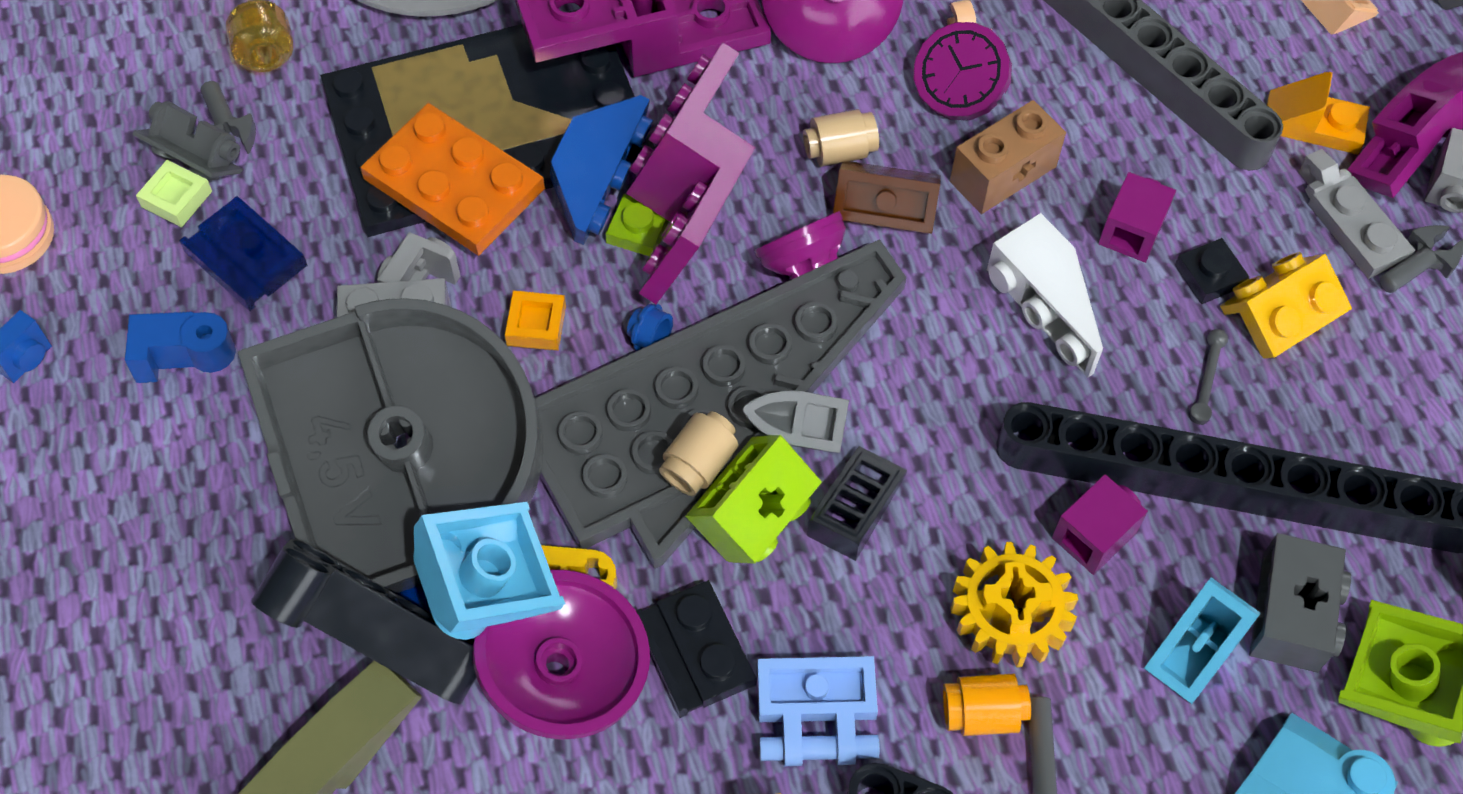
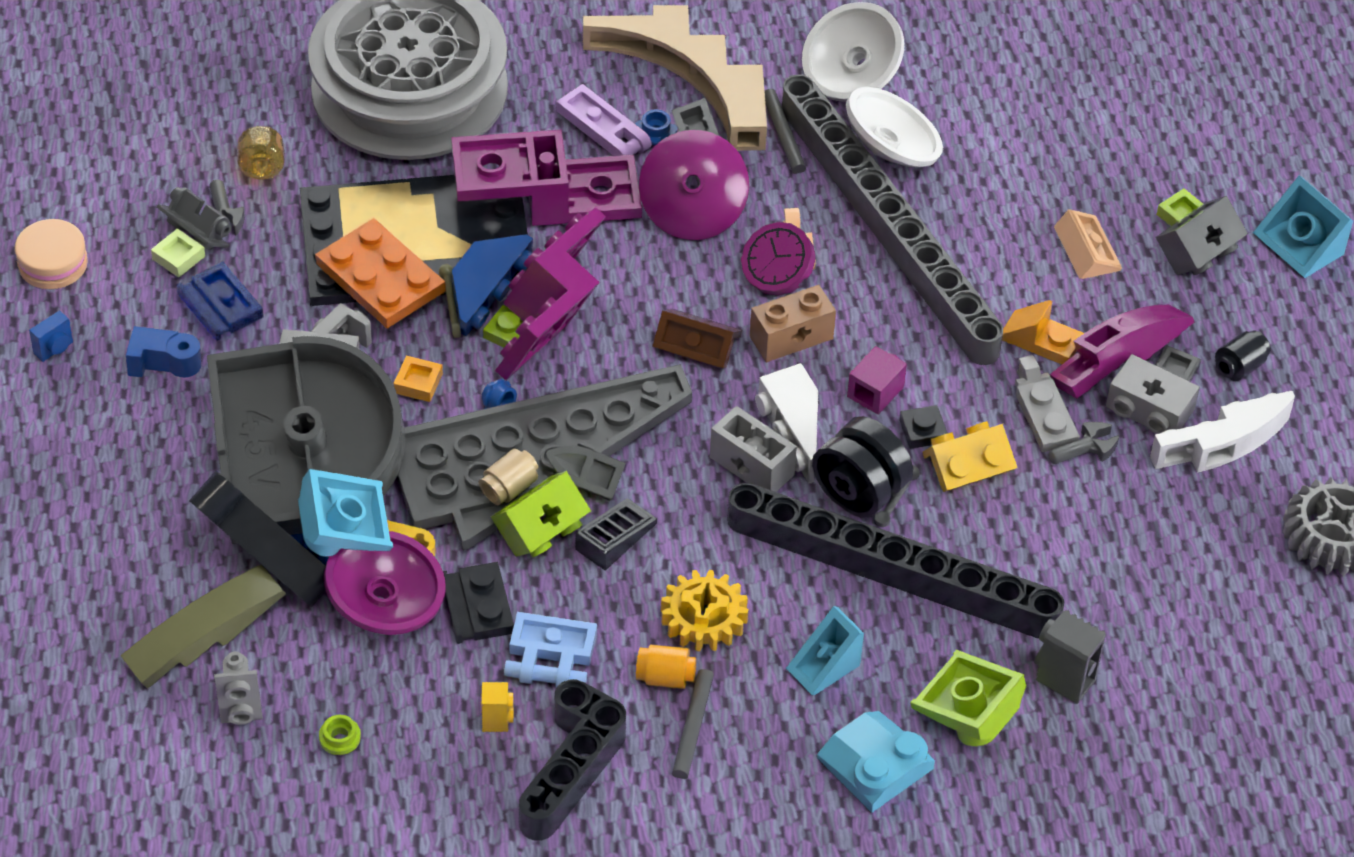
camera: 10 degrees right, 10 degrees down
(540, 162) = (445, 272): none -> olive hinge
(804, 248) = (622, 357): magenta piece -> none
(841, 137) = (673, 291): tan brick -> none
(1013, 350) = (752, 450): none -> light grey brick
(1099, 523) = (781, 572): magenta brick -> none
(1170, 350) = (862, 466): none -> black wheel
(1300, 603) = (904, 643): dark grey brick -> none

